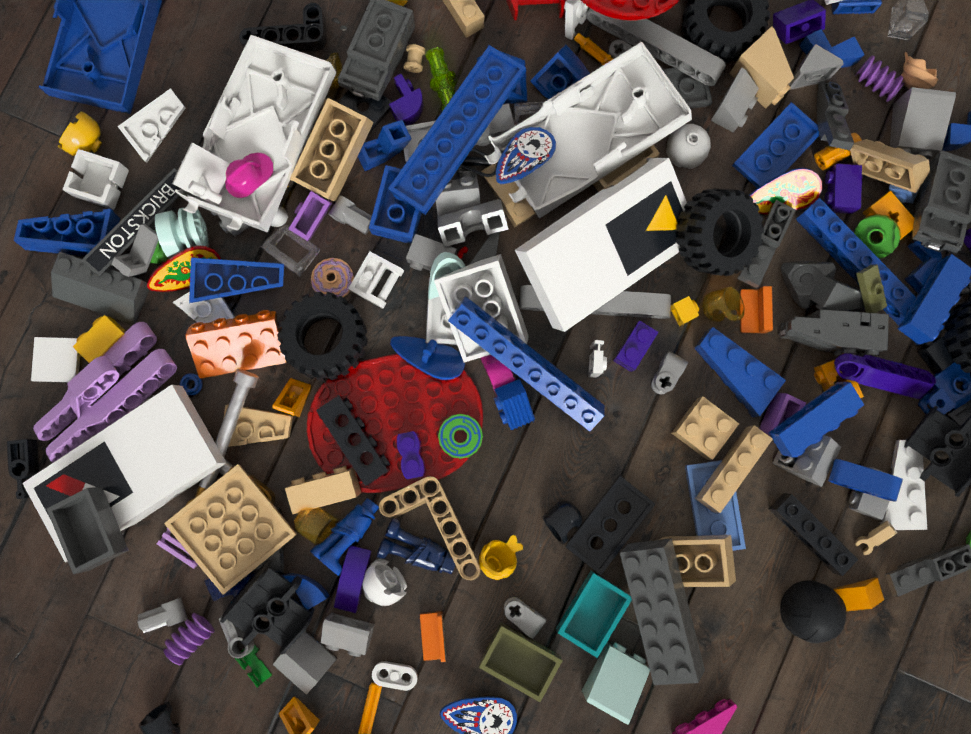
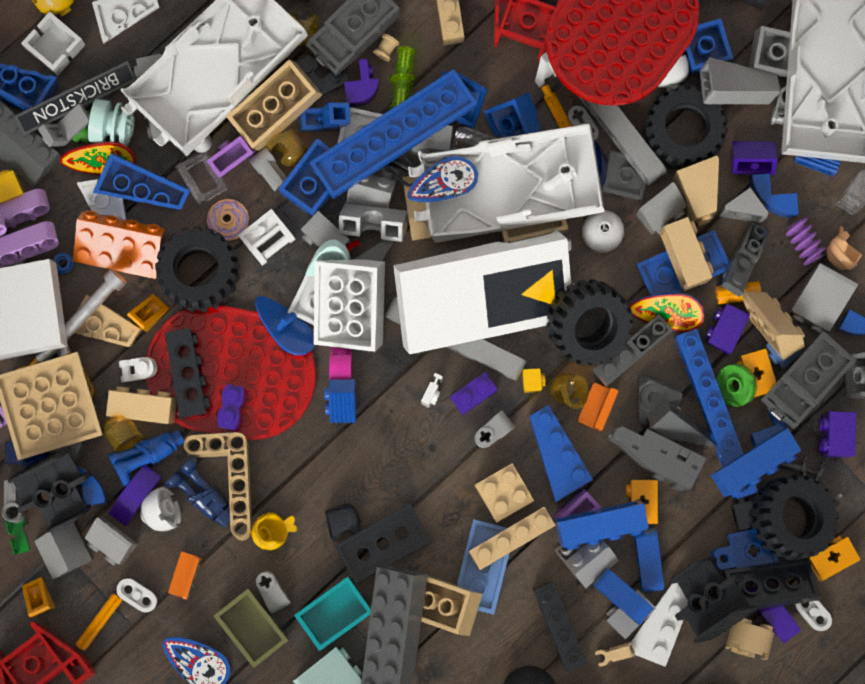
camera: 25 degrees right, 0 degrees up
(202, 174) = (151, 84): white plate -> none
(248, 174) = (191, 98): dark pink piece -> none
(310, 451) = (144, 369): none -> white plate
(365, 186) = (290, 146): none -> clear yellow helmet
(464, 423) = (270, 405): bright green tile -> none
(527, 363) = (367, 369): blue brick -> none
(781, 131) = (686, 254): none -> tan piece
(869, 437) = (649, 561): none -> blue beam
(871, 289) = (704, 430): olive plate -> none
(885, 374) = (684, 512): dark purple piece -> none

